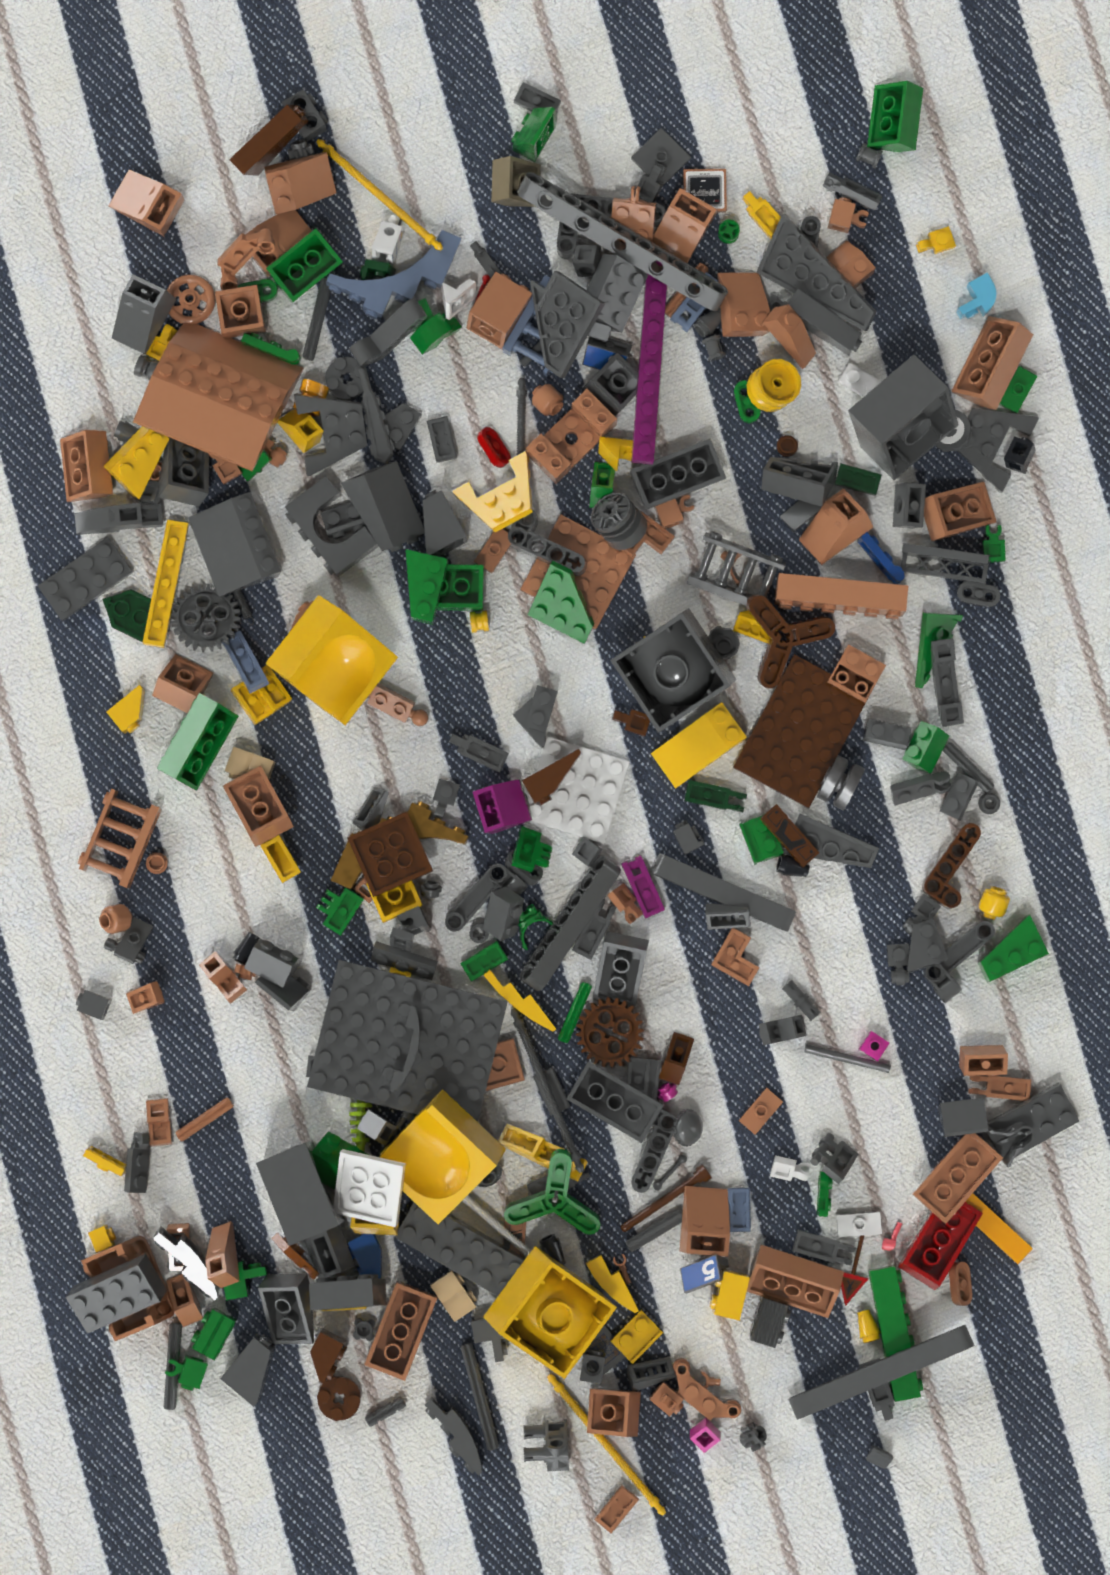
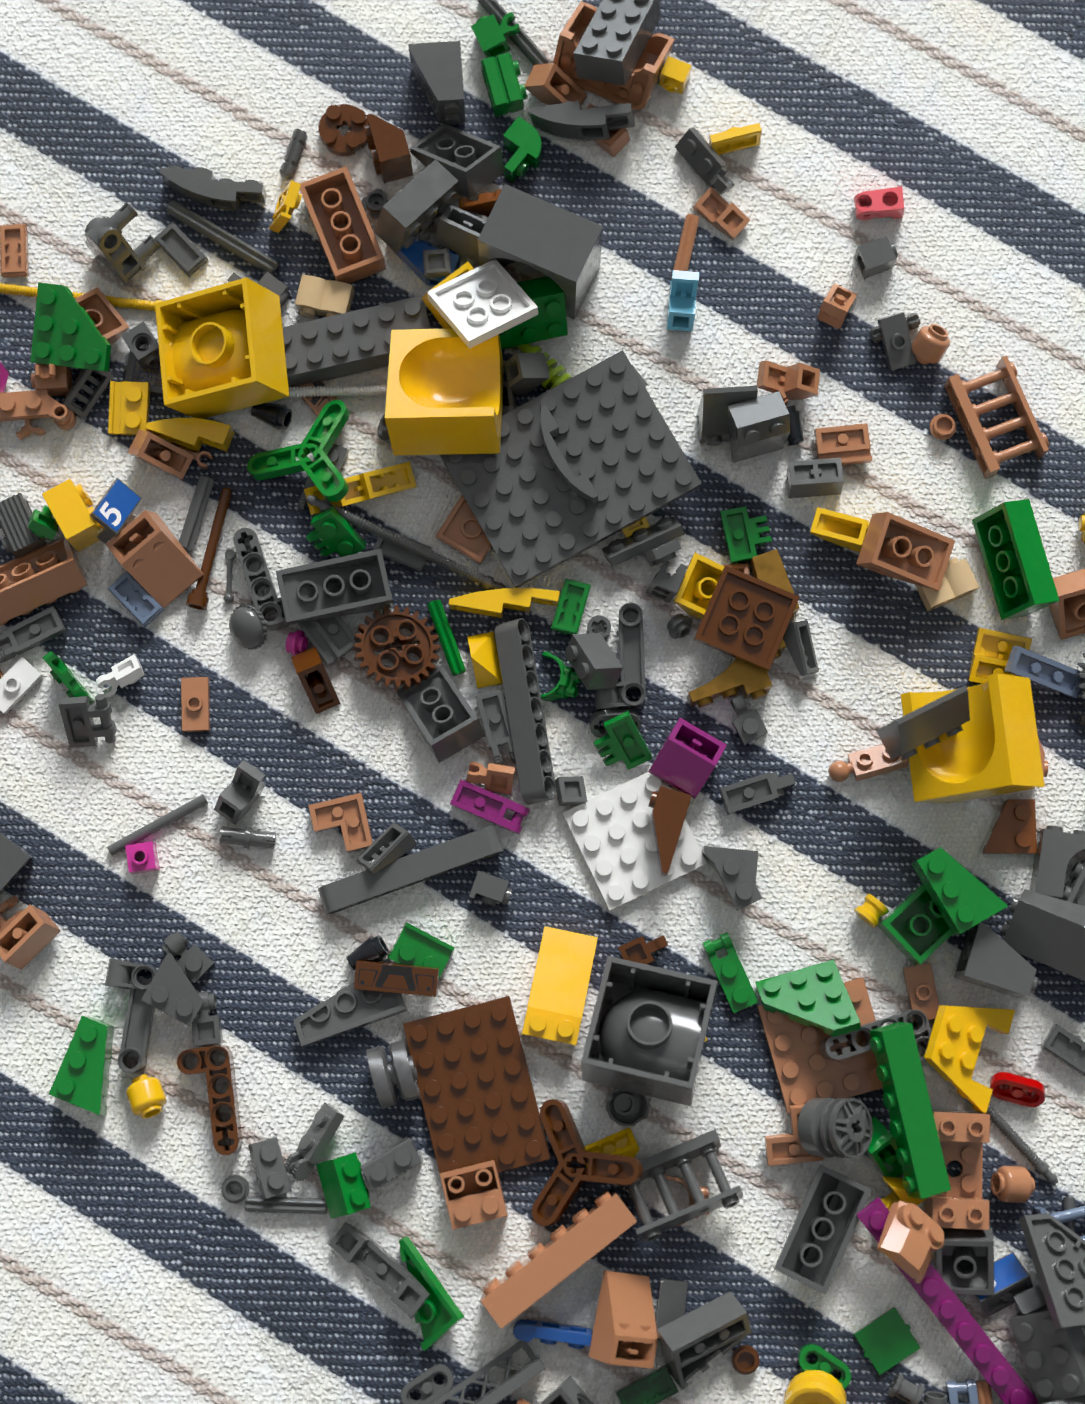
camera: 130 degrees right, 5 degrees down
(58, 1036) = (879, 204): none -> coral leg
(222, 1256) = (557, 144): nougat slope -> none
(228, 907) = (844, 442): none -> nougat plate
(239, 1086) = (682, 300): none -> medium azure brick
(264, 903) = (815, 478): none -> dark grey hinge
(351, 590) = (1014, 829): none -> dark orange wing
(351, 692) = (926, 724): none -> dark grey slope
(366, 1249) = (436, 263): none -> dark grey tile
(423, 1377) = (287, 202): none -> yellow plate
(511, 1413) = (181, 249): none -> dark grey tile
(564, 978) = (485, 660): none -> yellow slope
(568, 492) = (909, 1110): none -> green brick
(584, 1137) = (334, 534): none -> green hinge
(594, 661) = (730, 973): none -> green plate
(634, 1413) = (66, 332): none -> green plate
(636, 423) = (910, 1239): none -> nougat slope
(644, 1287) = (160, 453): none -> nougat slope
(670, 512) = (794, 1185): nougat brick -> none
(698, 383) = (887, 1340): none -> green piece
(712, 796) = (503, 950): dark green hinge -> none
(754, 1305) = (43, 524): none -> green plate

